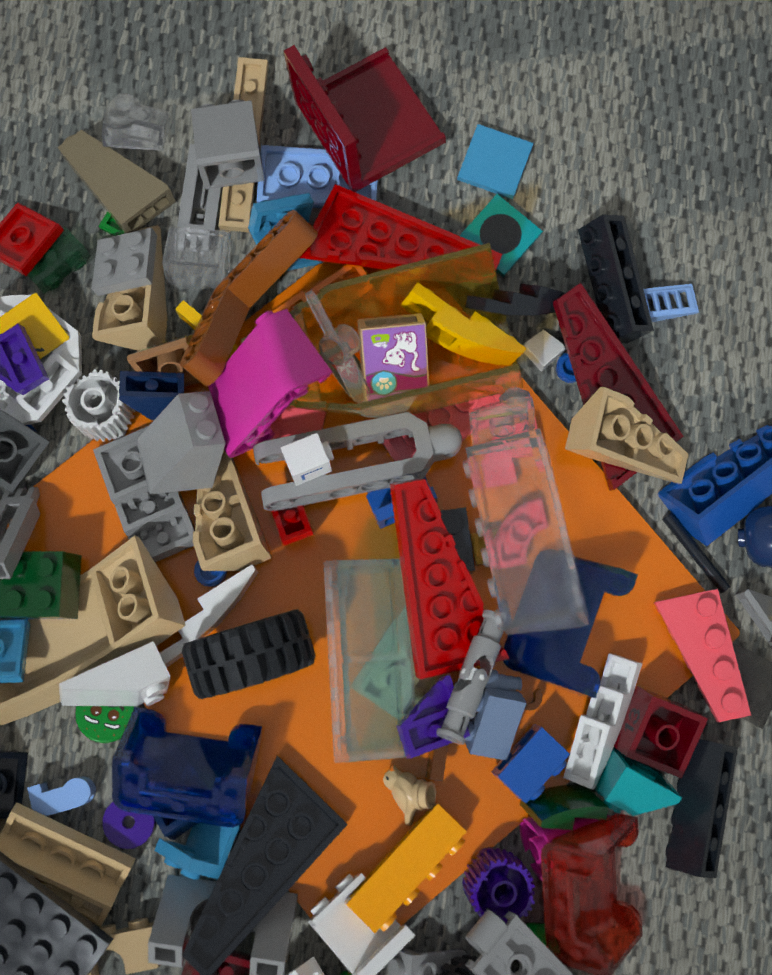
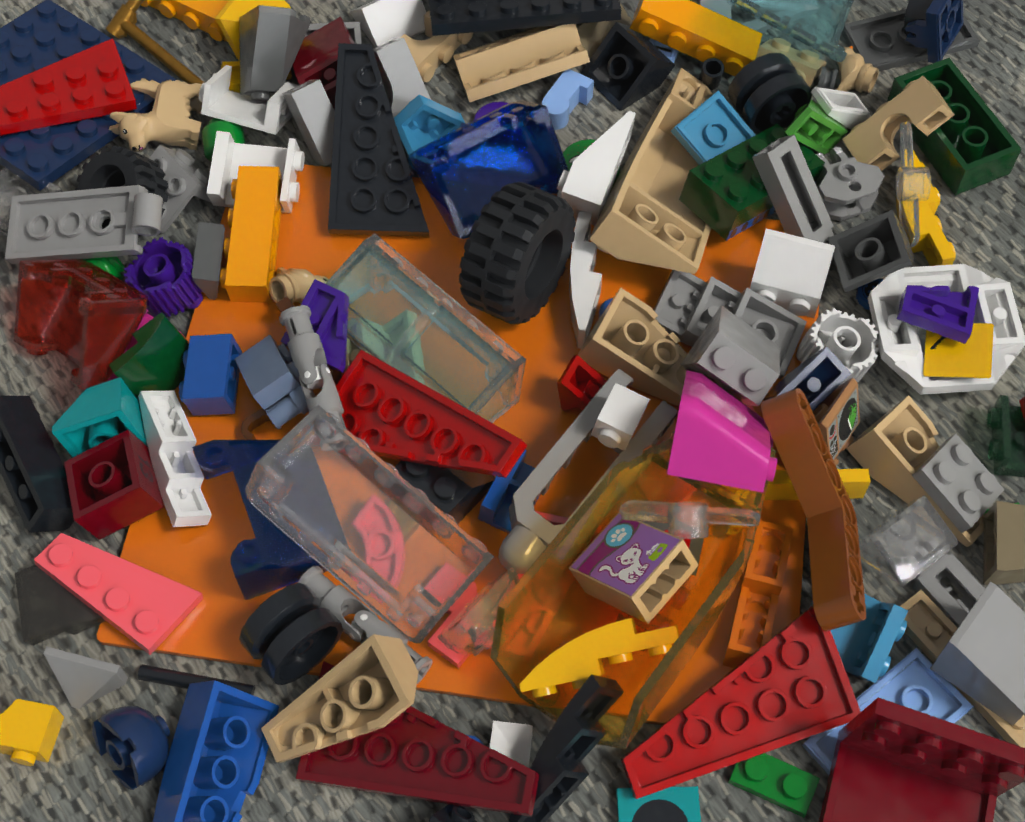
camera: 140 degrees right, 20 degrees down
(73, 483) = (792, 271): none -> white slope
(410, 198) = (776, 782): none -> green plate
(455, 874) = (208, 257): none -> dark grey slope
(569, 469) = (365, 622): none -> light grey piece
(627, 513) = (290, 633): none -> black wheel

